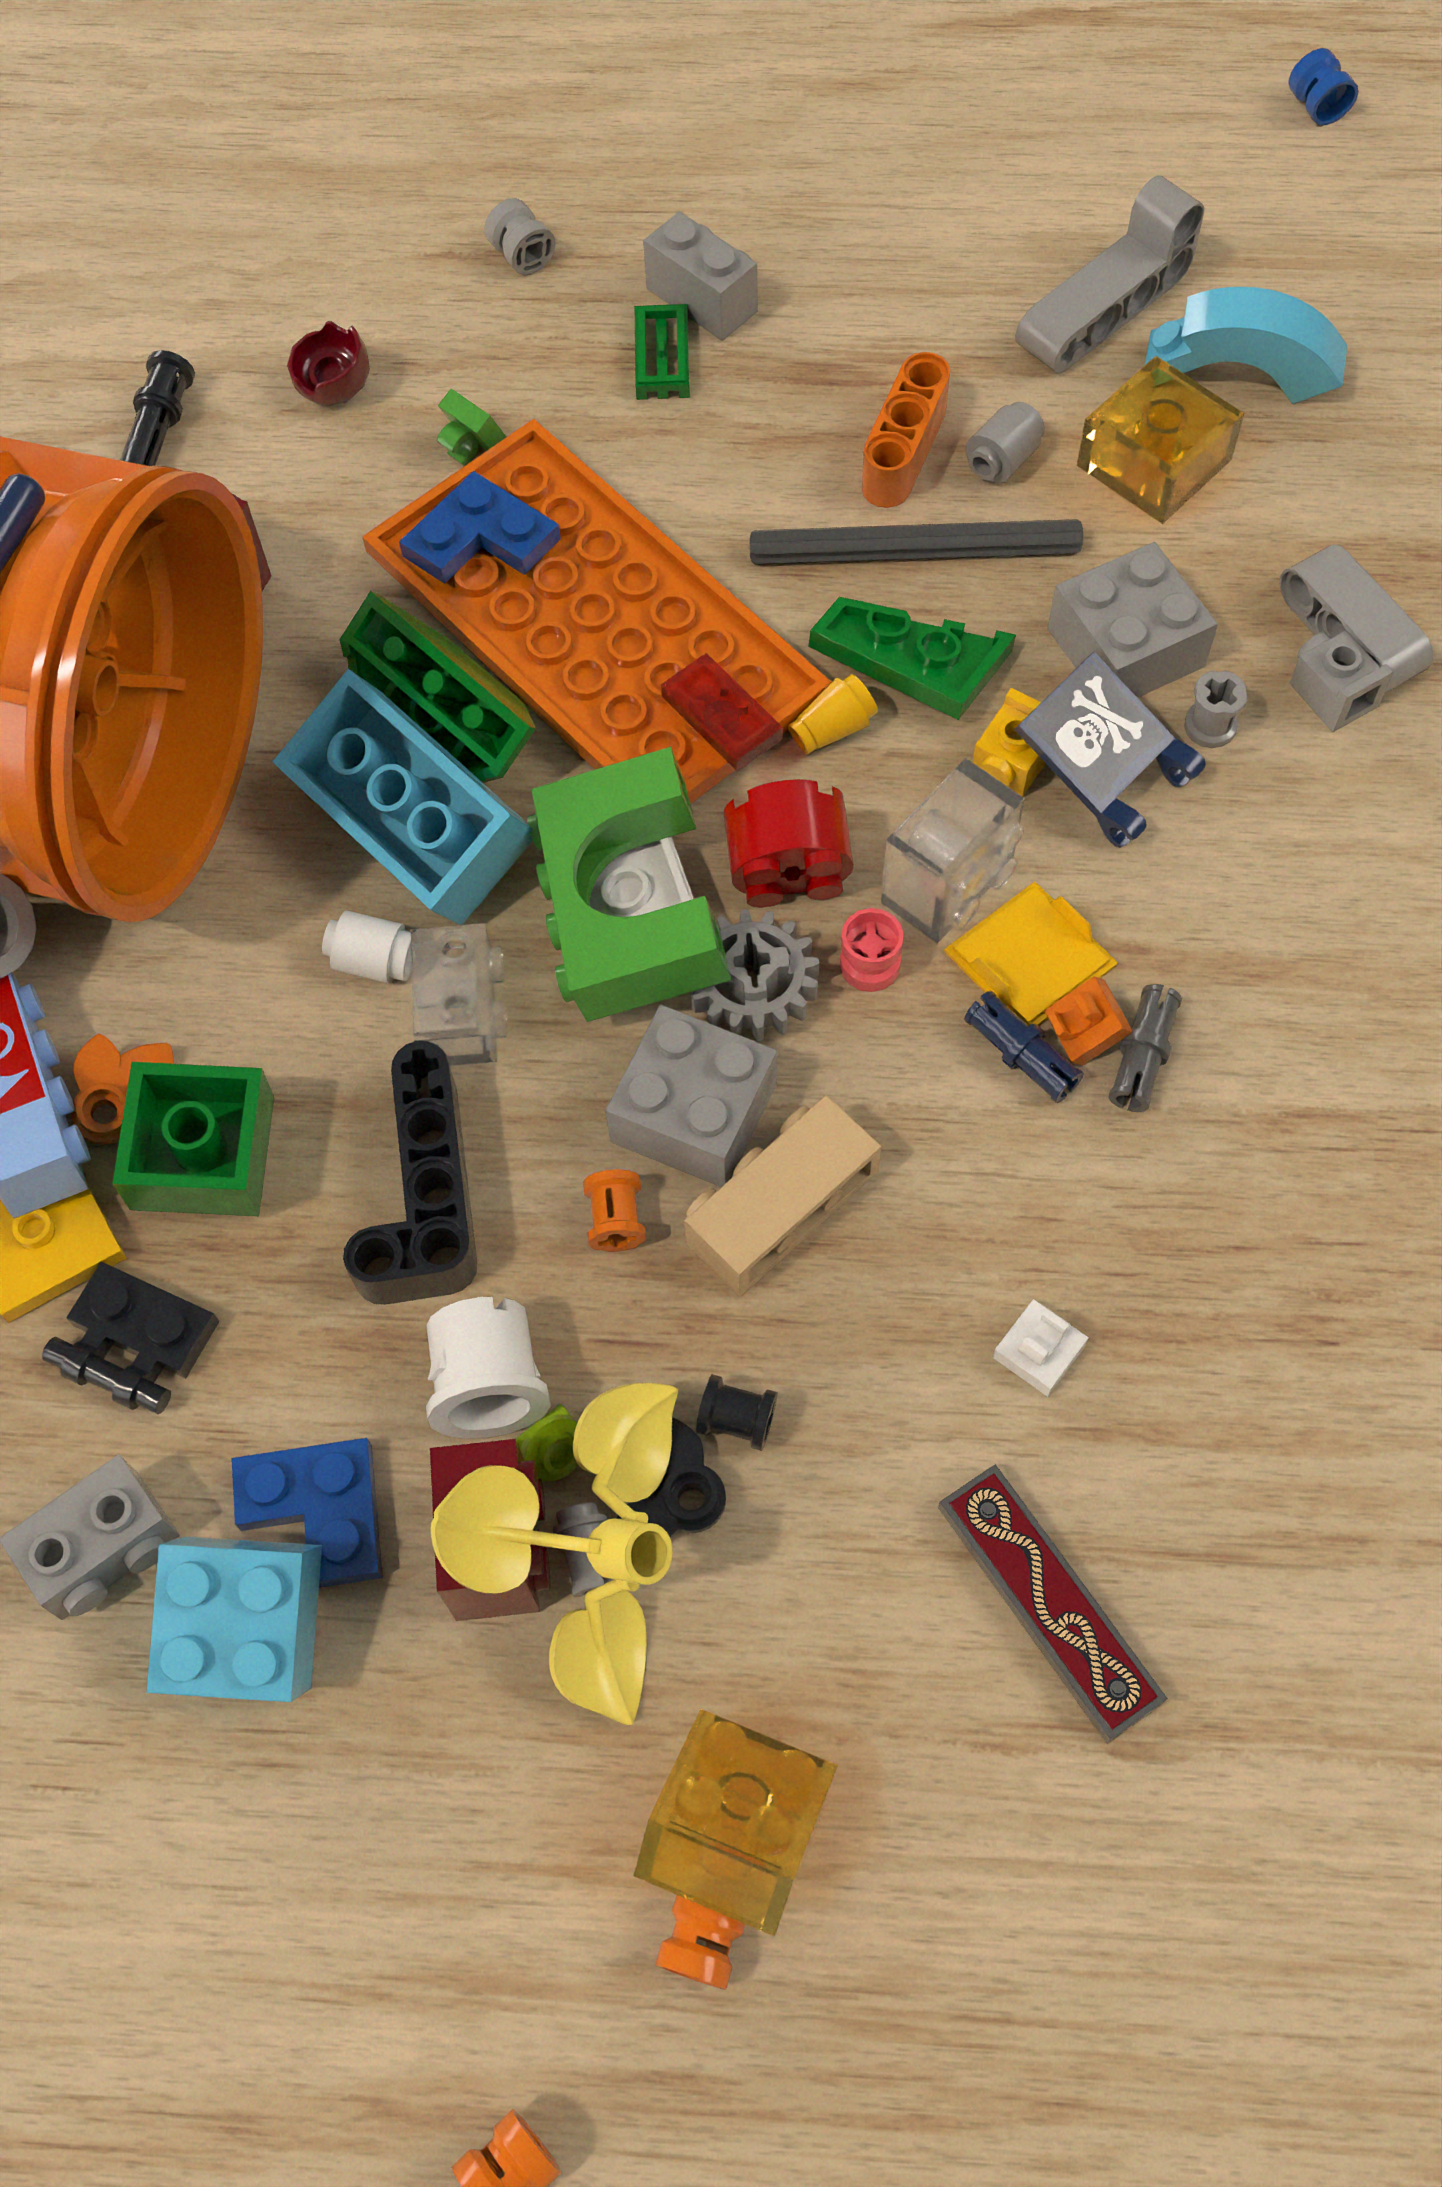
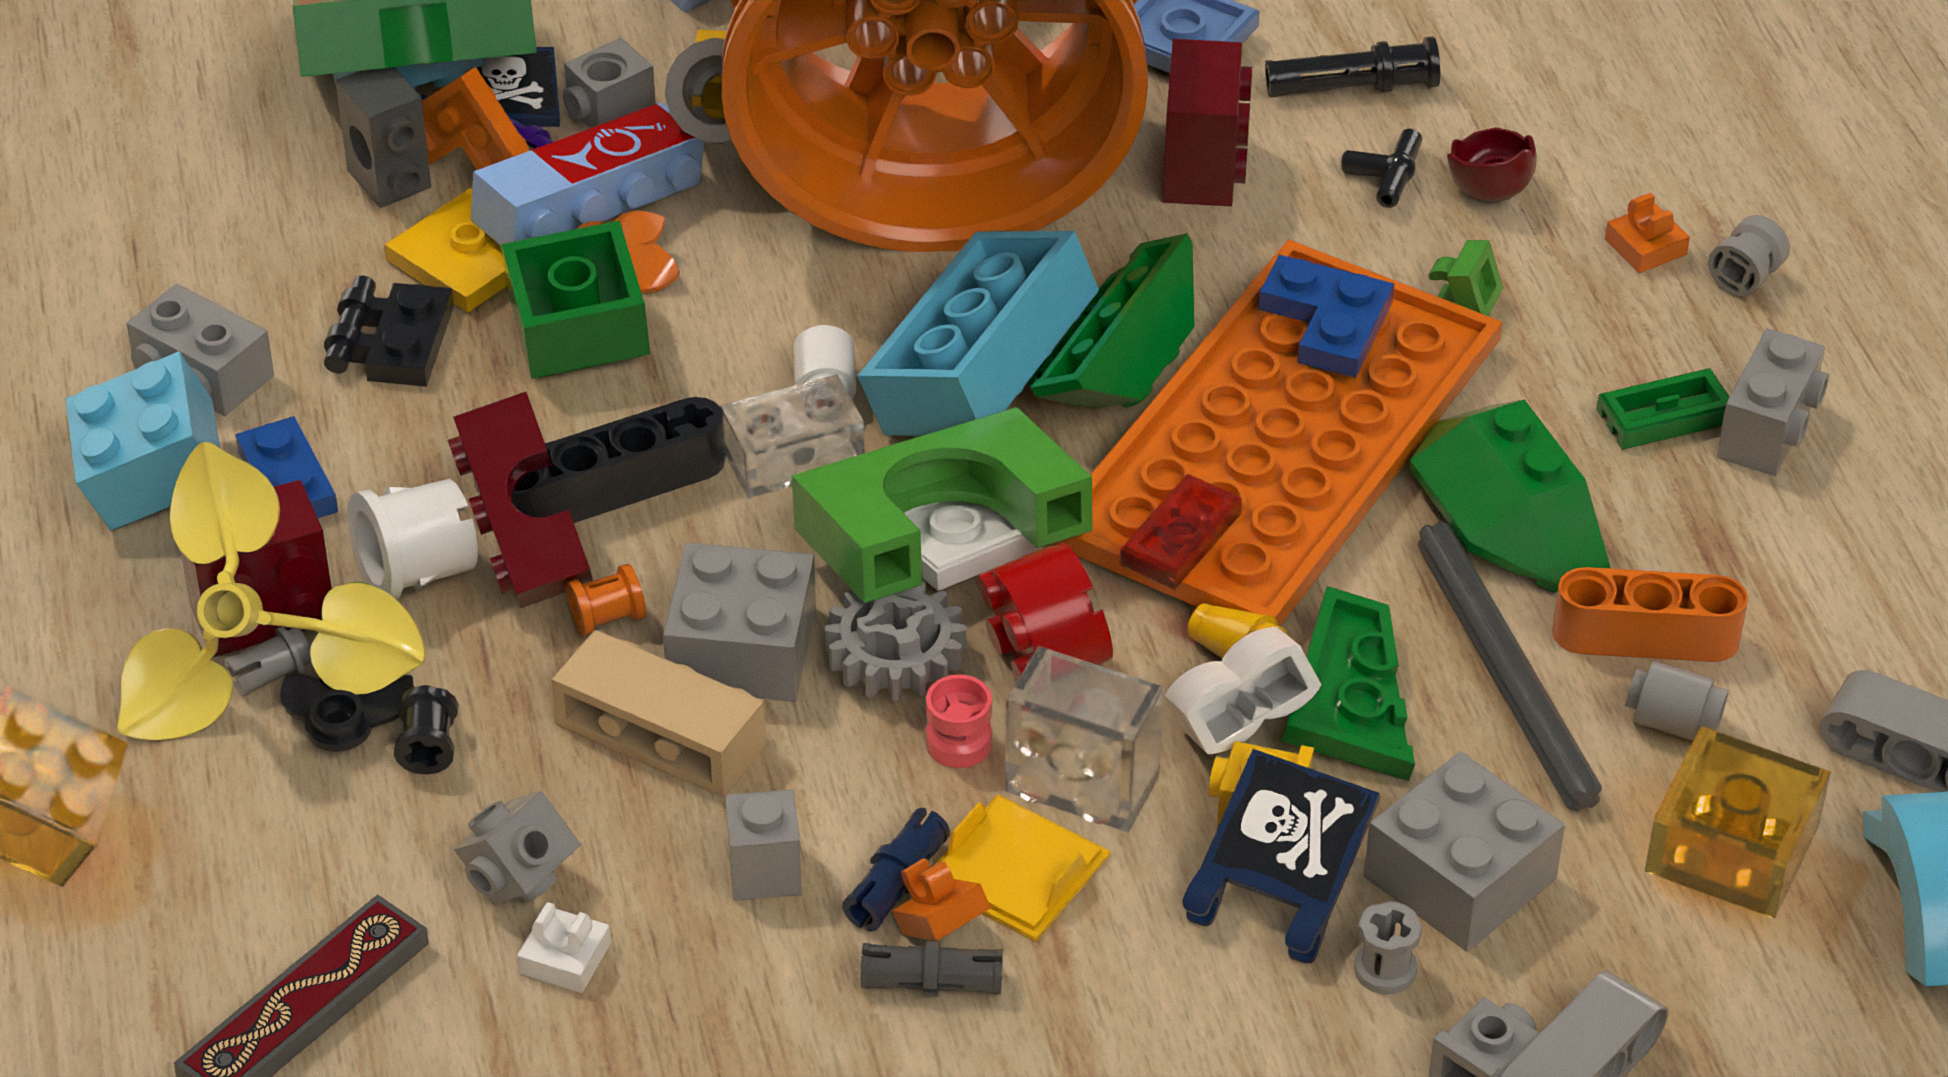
camera: 70 degrees right, 20 degrees down
(287, 438) = (1394, 168): none -> black piece
(442, 1247) = (500, 448): none -> dark red arch
(455, 297) = (1647, 235): none -> orange tile
(725, 474) = (1511, 492): none -> green wedge
(921, 719) = (1255, 681): none -> white brick
(934, 1357) = (516, 848): none -> light grey brick
(982, 1142) = (763, 844): none -> light grey brick

